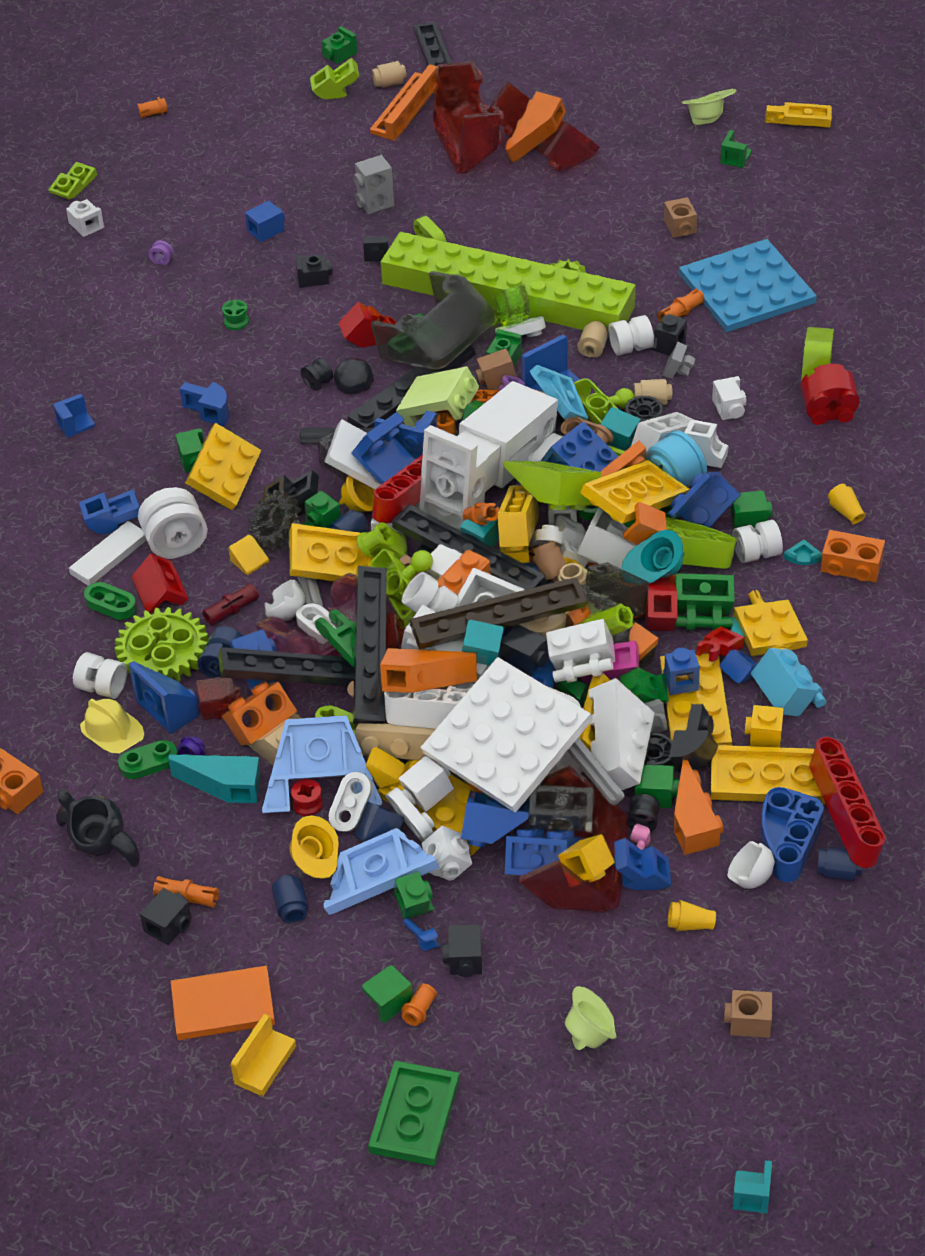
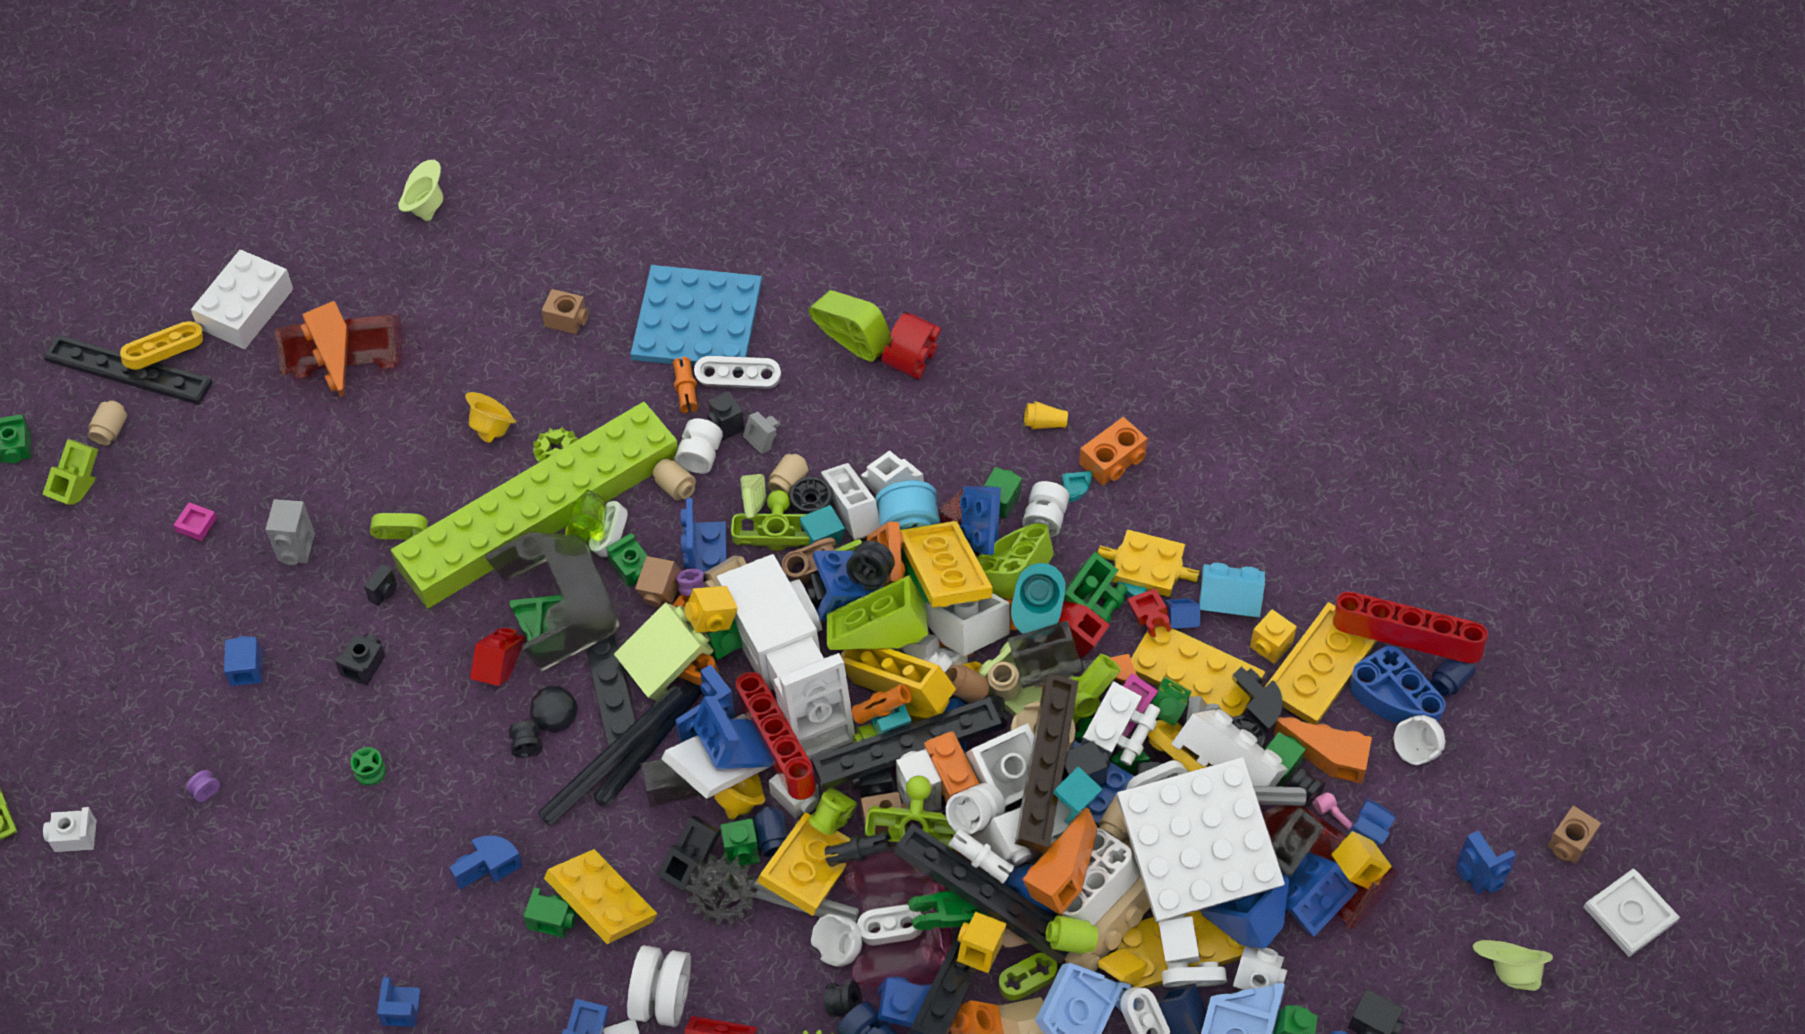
camera: 60 degrees left, 10 degrees up
(237, 620) = (841, 998): none -> black wheel
(244, 596) = (795, 992): dark red pin -> none
(247, 555) = (739, 940): yellow slope -> none
(328, 418) = (612, 755): none -> black axle
(329, 663) = (980, 941): none -> yellow brick
(350, 149) = (195, 521): none -> dark pink plate
(351, 561) = (858, 848): none -> black pin
(371, 707) = (1072, 935): none -> lime brick
(392, 619) = (981, 855): none -> white pin
(406, 104) = (179, 426): orange fence -> none
(448, 54) = (161, 345): none -> yellow plate
(462, 118) = (269, 401): clear red windscreen -> none
(478, 386) = (711, 609): none -> yellow brick
(540, 71) = (242, 299): none -> white brick
(557, 226) = (488, 416): none -> yellow piece
(561, 388) = (750, 546): medium azure wing -> none
(592, 449) = (870, 565): none -> black wheel
(612, 378) = (753, 493): none -> yellowish green slope
(647, 523) = (1001, 577): orange panel -> none
(659, 954) = (1481, 866): none -> blue bracket
(681, 663) = (1176, 659): blue brick -> none
(687, 916) = (1440, 821): yellow cone -> none
(710, 1089) = (1631, 912): none -> white plate
(728, 335) = (726, 366): none -> white plate
(729, 398) = (845, 422): white brick -> none
(734, 153) = (506, 216): green panel -> none
(752, 1190) = (1747, 937): teal panel -> none
(800, 114) = (500, 135): yellow hinge -> none

